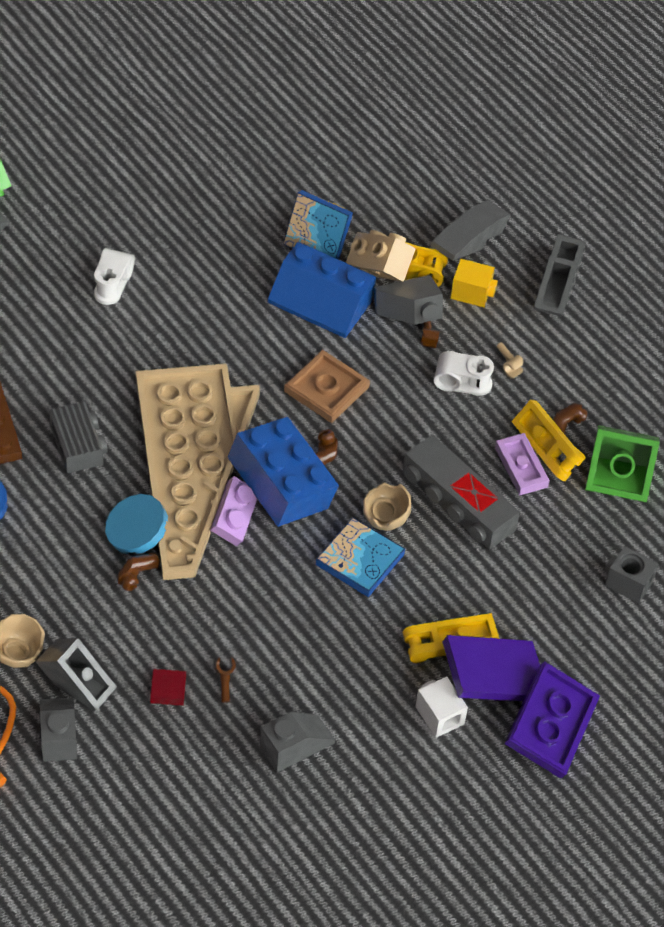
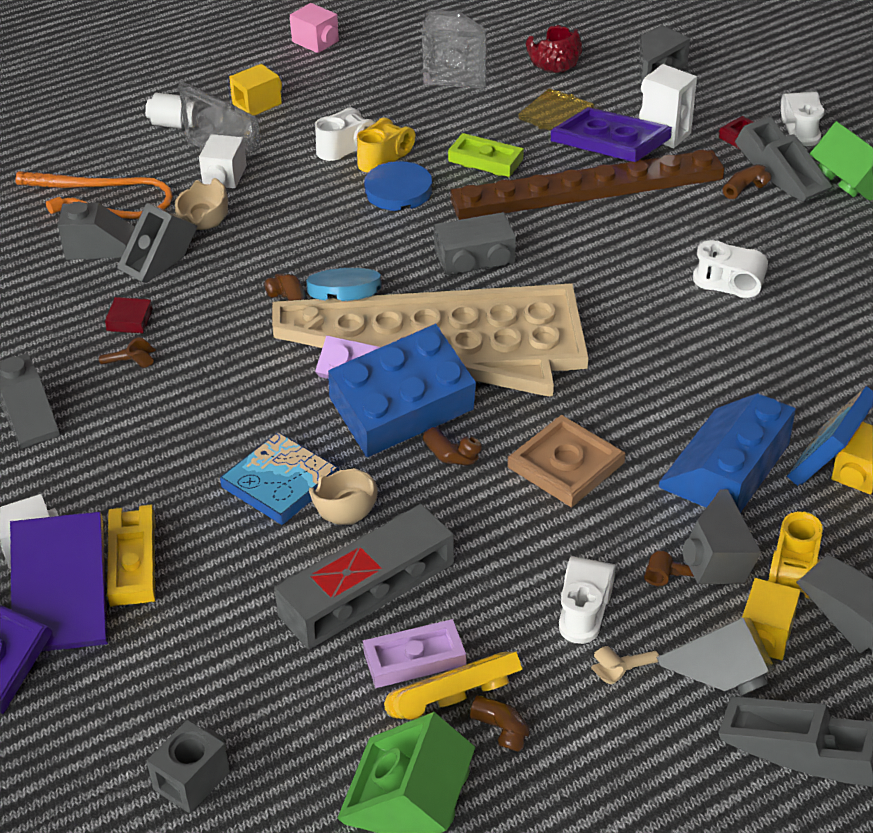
camera: 100 degrees right, 10 degrees down
(381, 255) = (781, 488): tan brick -> none
(513, 304) = (724, 658): none -> slope

